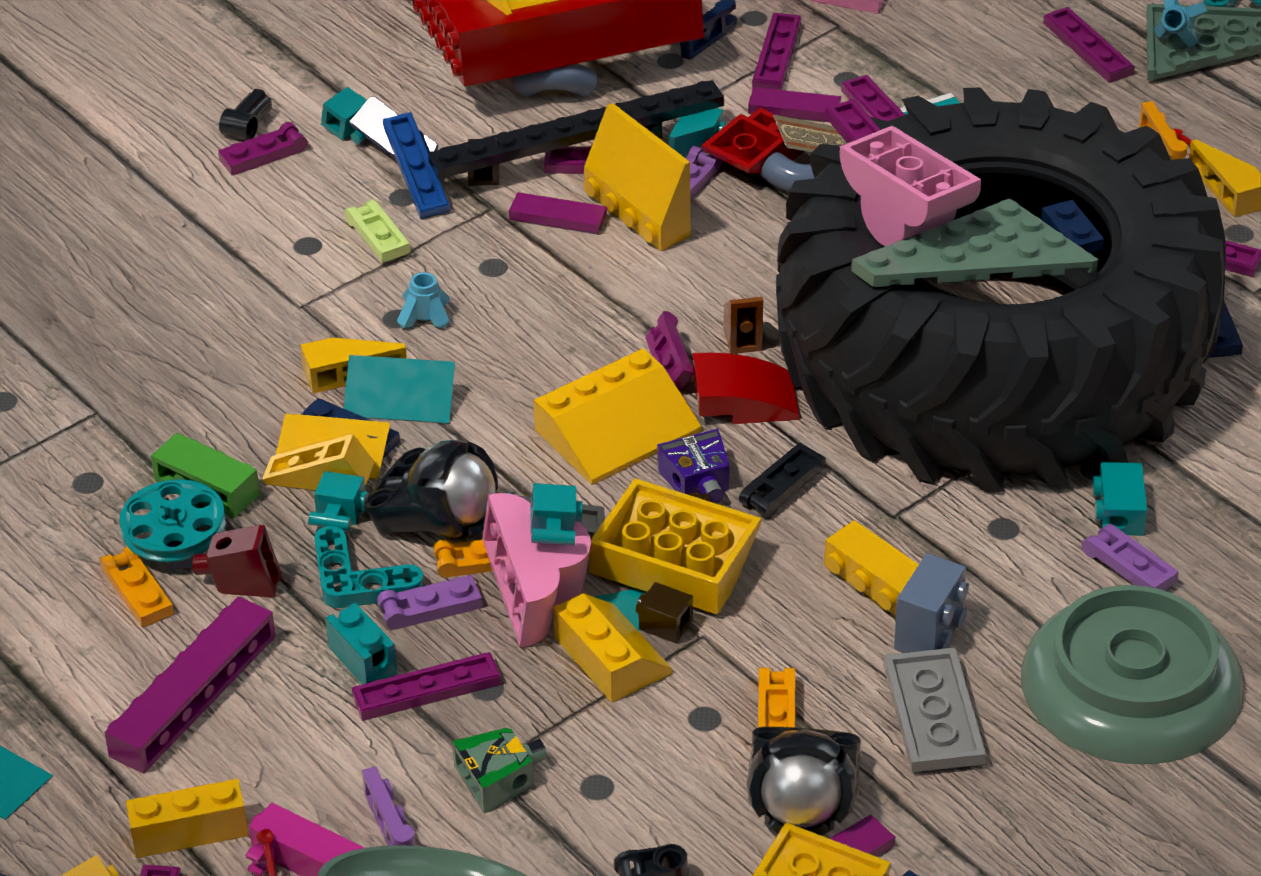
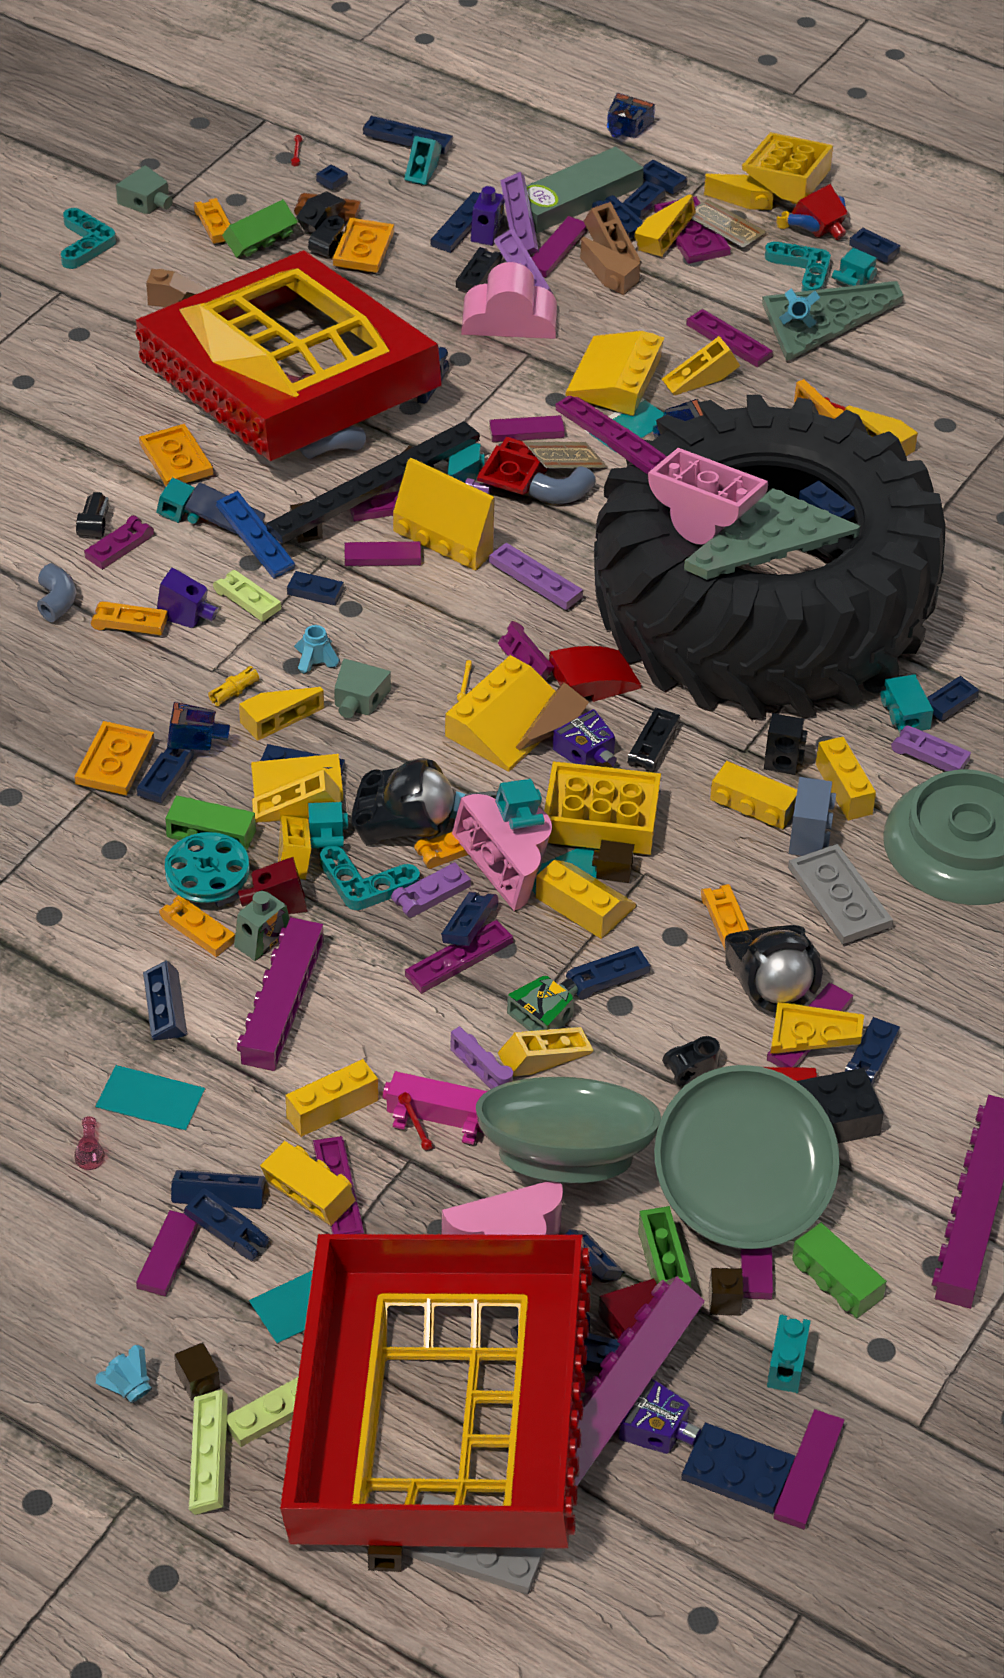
camera: 20 degrees left, 5 degrees up
(56, 665) = (164, 1002): none -> dark blue slope
(135, 380) = (114, 758): none -> light orange plate
(165, 193) = (61, 592): none -> sand blue cylinder
(185, 407) = (164, 774): none -> dark blue hinge
(199, 596) = (260, 925): none -> sand green torso
(231, 231) = (129, 618): none -> light orange plate
(236, 362) = (194, 728): none -> clear blue torso
(288, 517) = (295, 842): none -> yellow slope
(295, 220) = (184, 599): none -> dark purple torso
(312, 326) = (233, 686): none -> yellow pin
(358, 639) = (399, 935): teal brick -> none
(372, 66) = (176, 454): none -> light orange plate
(399, 388) = (330, 724): teal sticker -> none
(454, 642) = (469, 918): none -> dark blue plate
(456, 343) = (360, 688): none -> sand green torso
(461, 237) = (315, 588): none -> dark blue plate
(468, 817) = (542, 1049): none -> yellow slope
(596, 742) = (609, 971): none -> dark blue plate
(598, 356) = (465, 680): none -> yellow hinge
(678, 420) = (559, 710): none -> medium nougat slope
(724, 265) = (536, 576): none -> medium lavender plate
(744, 324) = (573, 620): dark orange slope -> none
(777, 51) = (492, 385): magenta tile -> none
(933, 57) = (617, 370): none -> yellow slope
(936, 514) = (784, 744): none -> black brick
(1001, 571) = (849, 782): none -> yellow brick
(1042, 69) = (703, 368): none -> yellow slope
(1183, 502) = (952, 697): none -> dark blue plate

